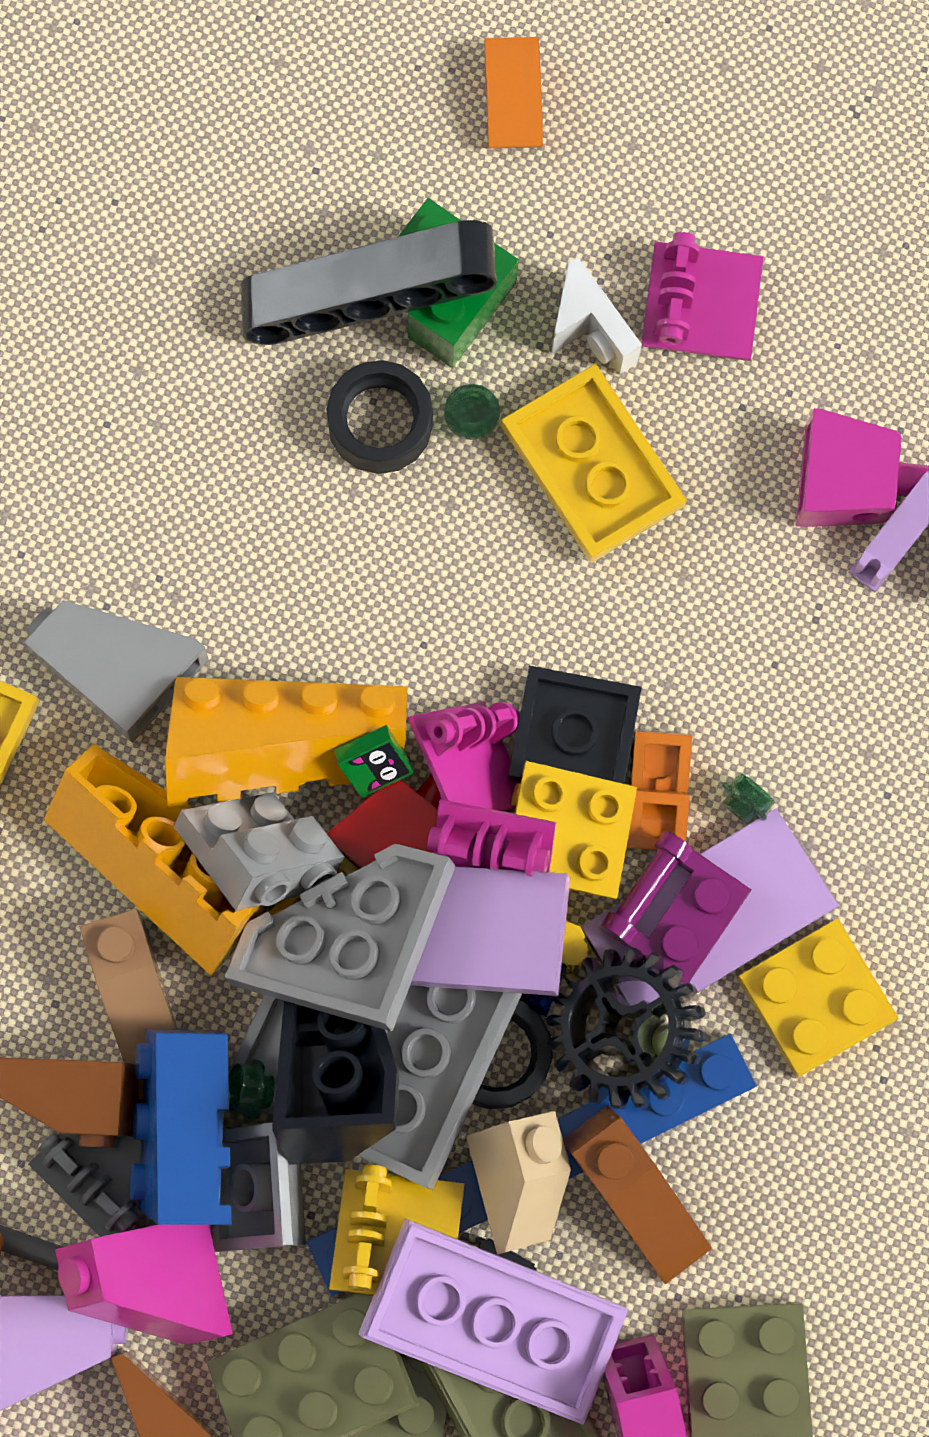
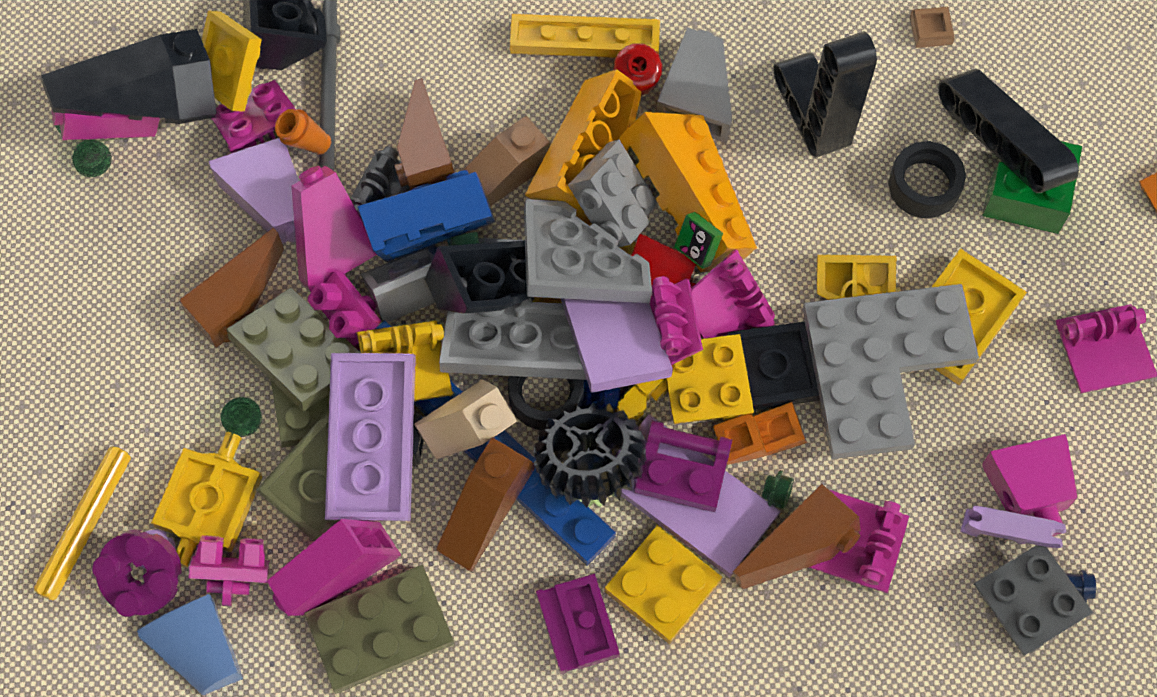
camera: 75 degrees right, 10 degrees down
(38, 740) = (639, 56): none -> red head
(144, 305) = (932, 27): none -> medium nougat tile
(234, 517) = (828, 94): none -> black beam
(278, 1293) = (344, 307): none -> dark pink hips
(472, 412) = (957, 233): clear green plate -> none
(496, 571) = (855, 275): none -> yellow slope
(589, 310) = (1055, 273): white slope -> none
(600, 611) = (865, 345): none -> light grey plate
(831, 786) = (805, 538): none -> dark orange slope
(836, 1130) = (578, 624): none -> magenta plate
(847, 725) = (877, 550): none -> dark pink hinge

